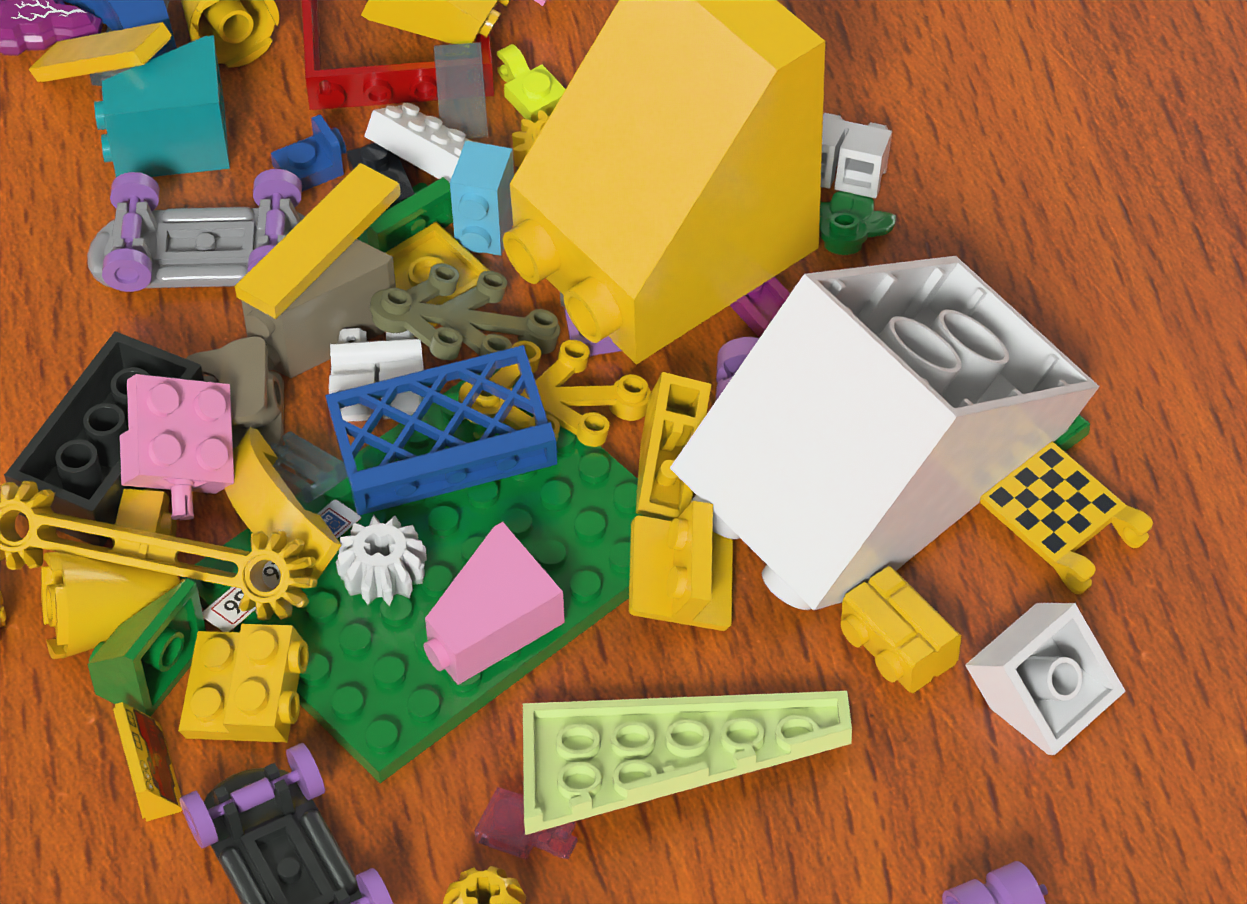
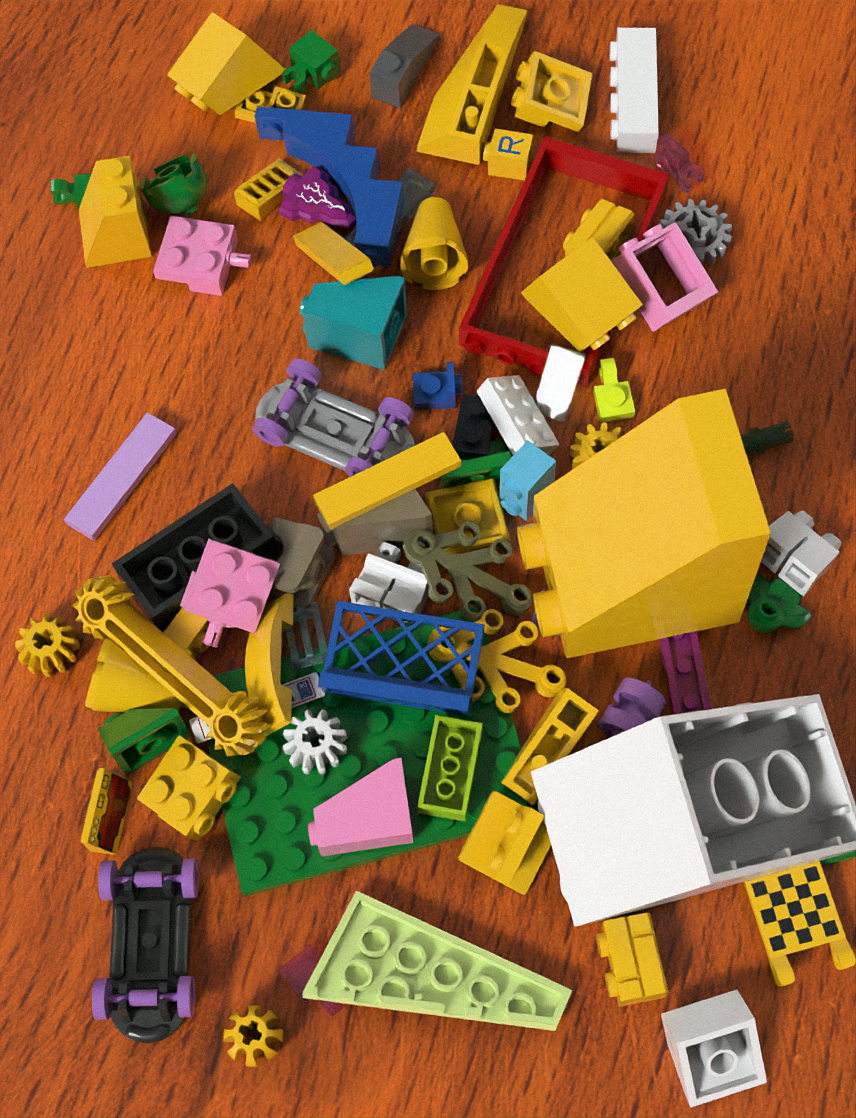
camera: 30 degrees right, 15 degrees up
(566, 519) = (450, 768): none -> lime piece

